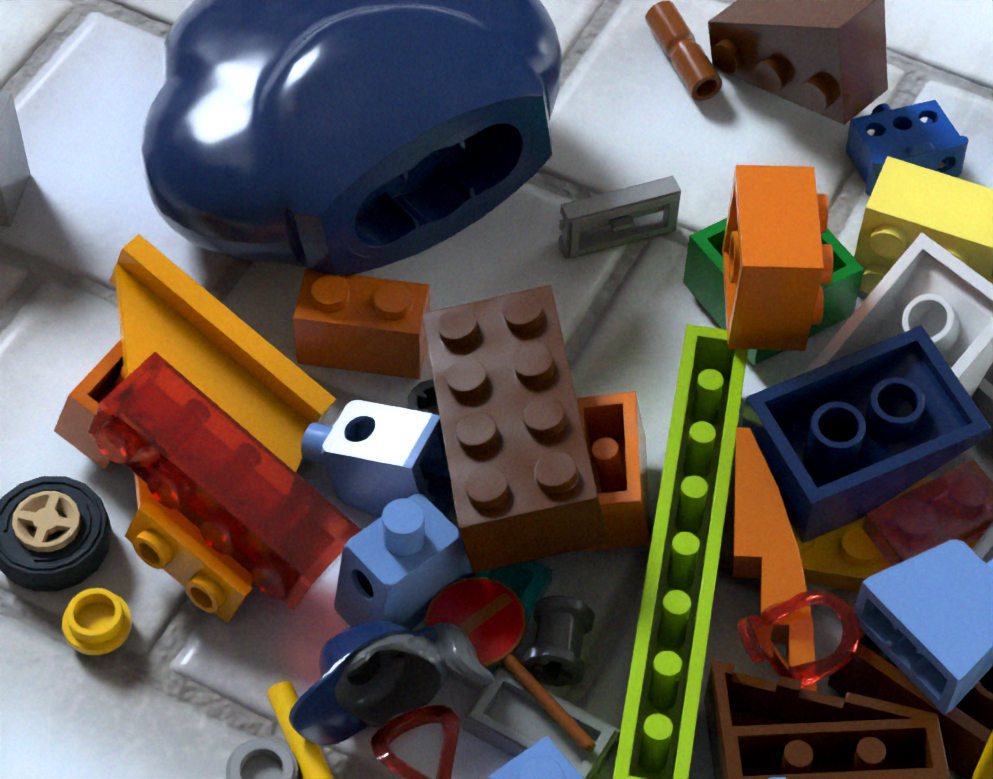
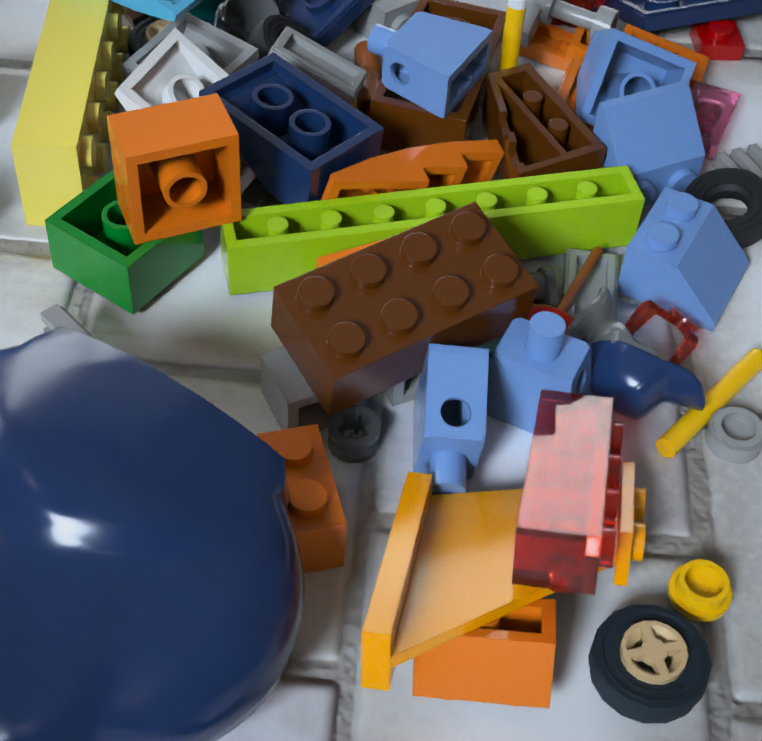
camera: 115 degrees left, 5 degrees down
(757, 631) = (494, 142): clear red piece -> none

